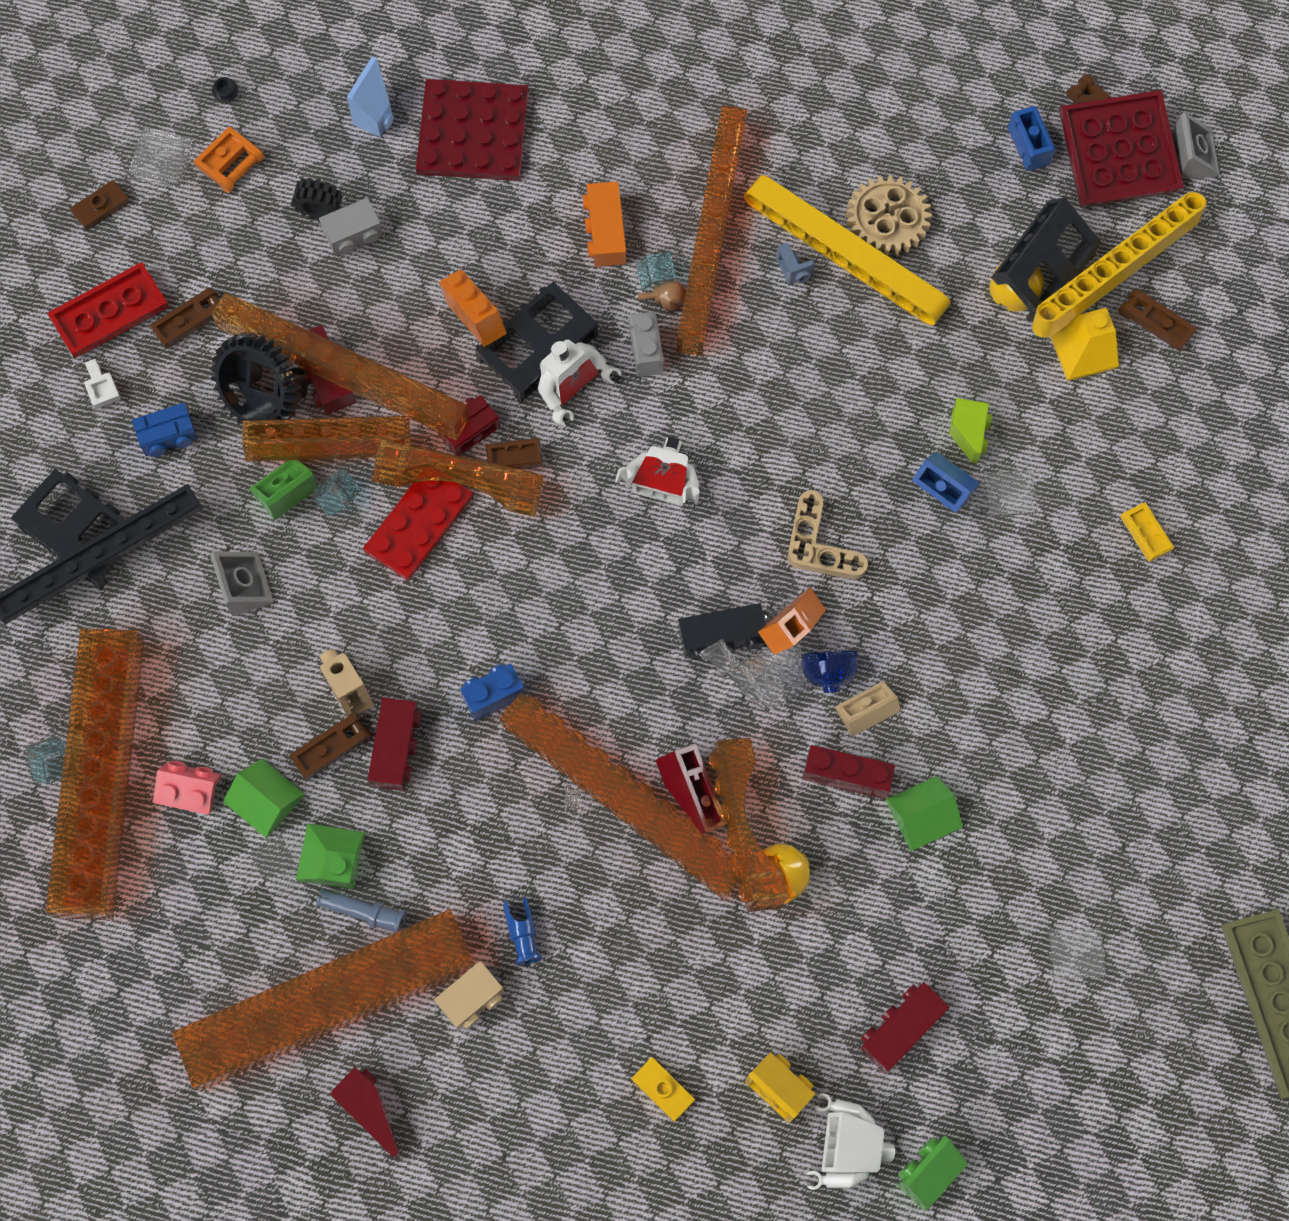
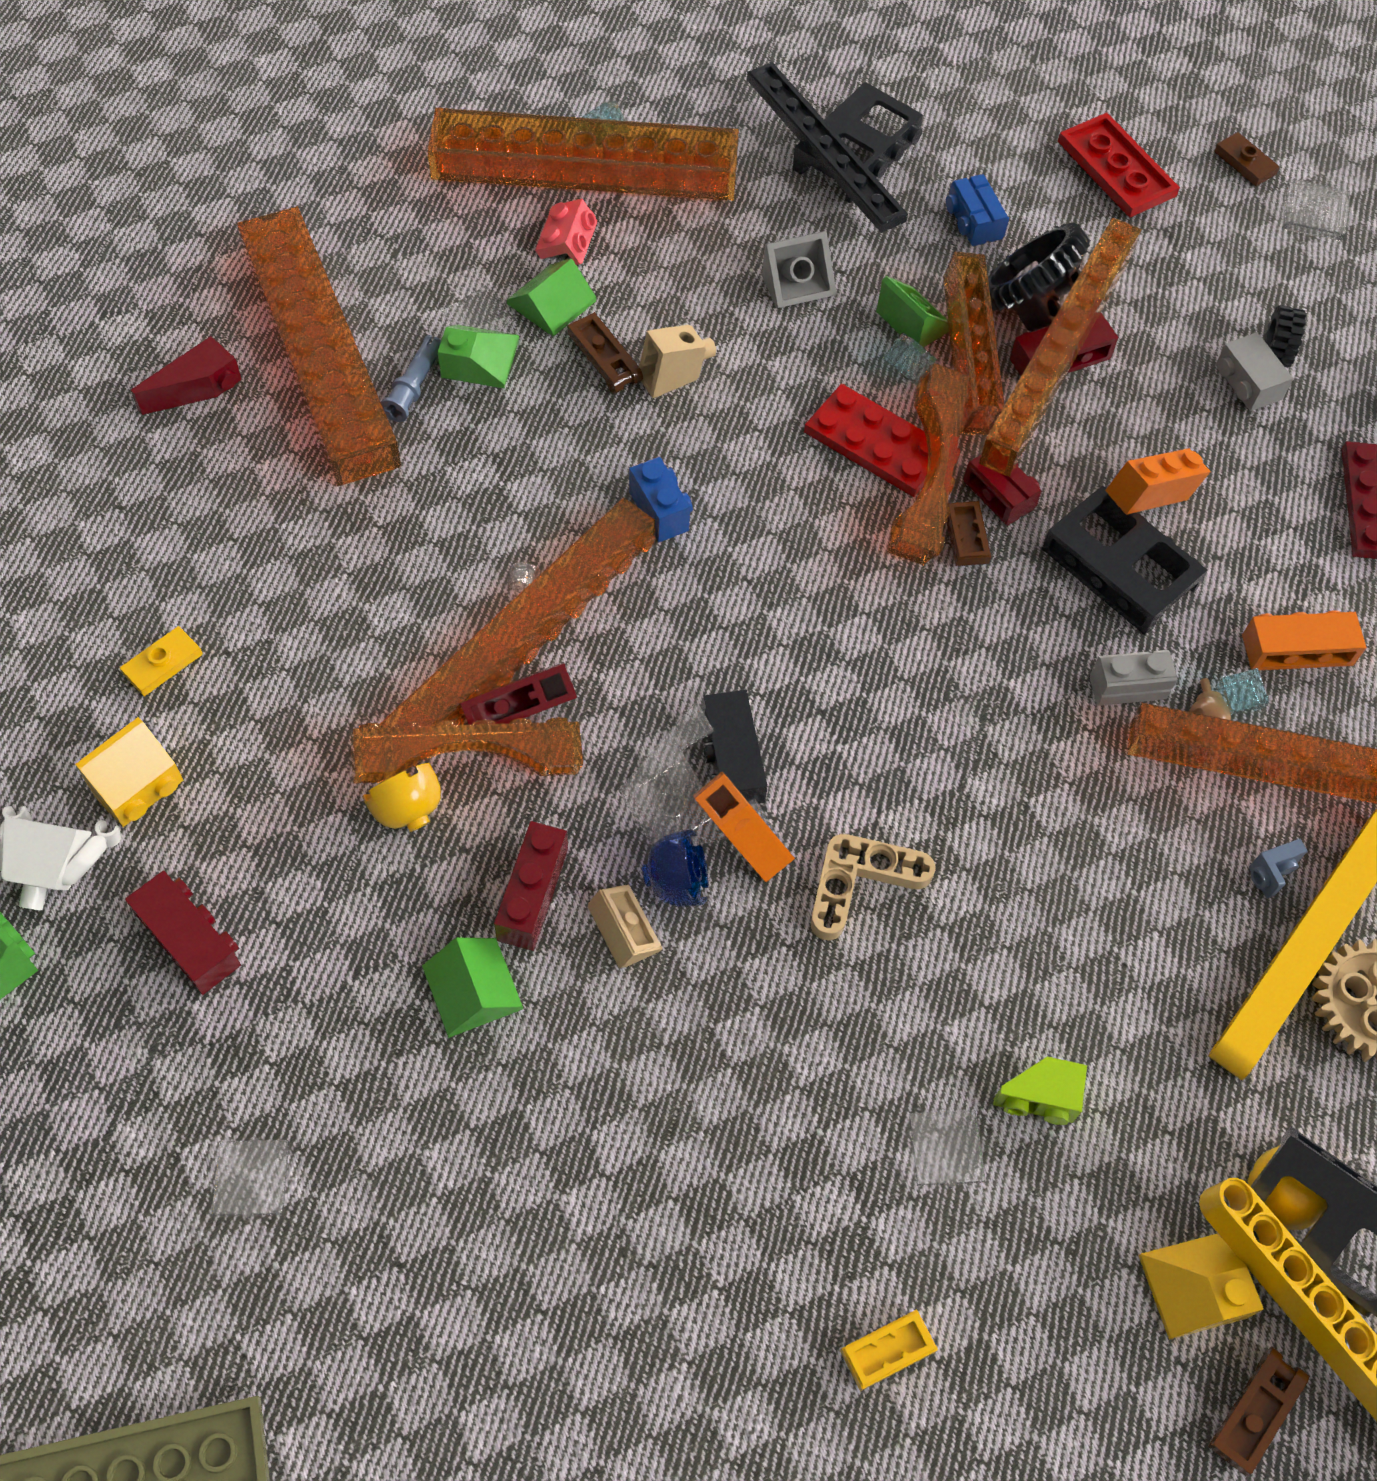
camera: 90 degrees right, 10 degrees down
(100, 387) = (1024, 159): white plate -> none
(185, 318) = (1097, 215): reddish brown plate -> none
(225, 152) = (1329, 259): orange plate -> none
(394, 744) = (601, 406): dark red brick -> none
(470, 996) = (298, 466): tan brick -> none
(523, 935) = (367, 524): blue piece -> none
(567, 372) = (1083, 584): white torso -> none
(662, 474) = (949, 686): torso -> none
(945, 481) = (954, 1043): blue brick -> none

